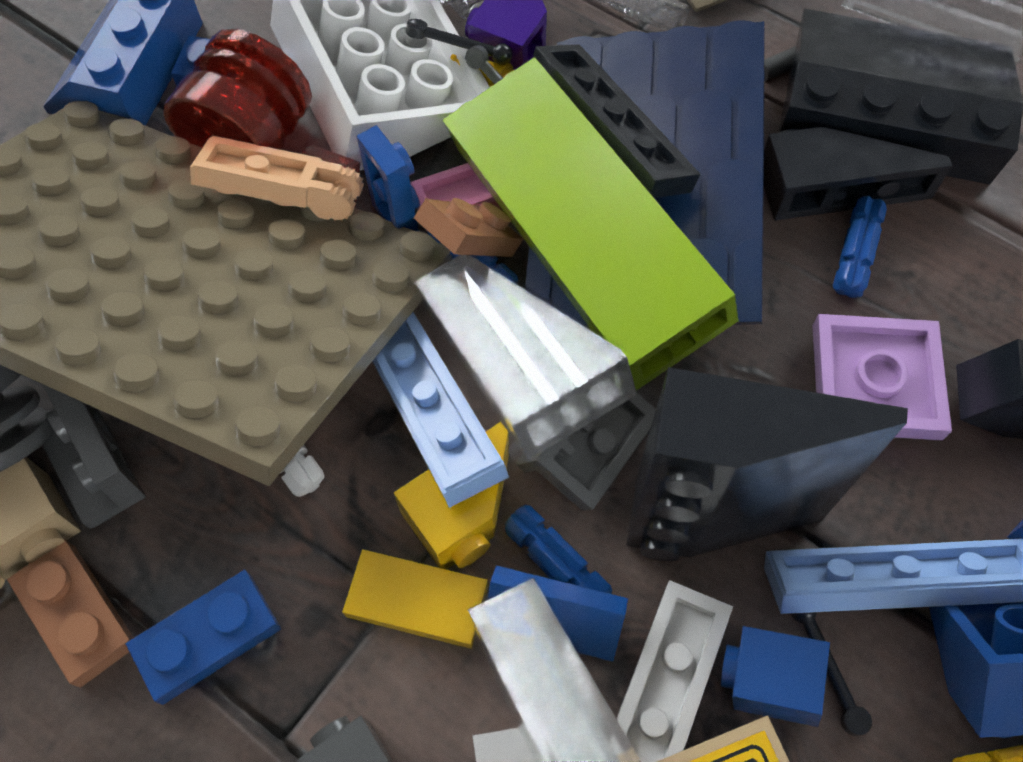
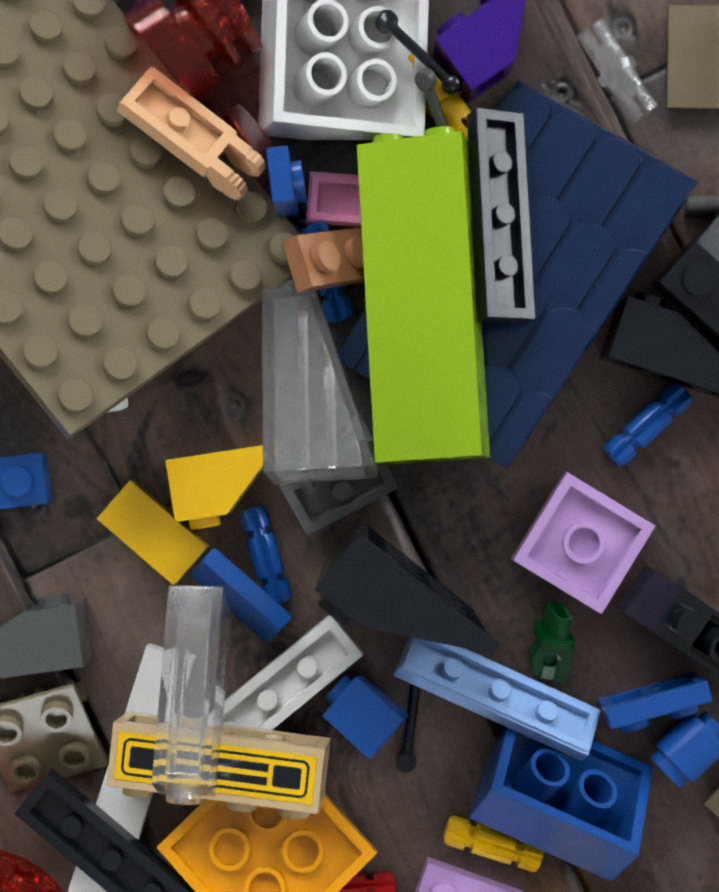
camera: 30 degrees right, 25 degrees up
(438, 415) = (226, 410): light blue tile -> none
(926, 492) = (554, 644): none -> dark green piece

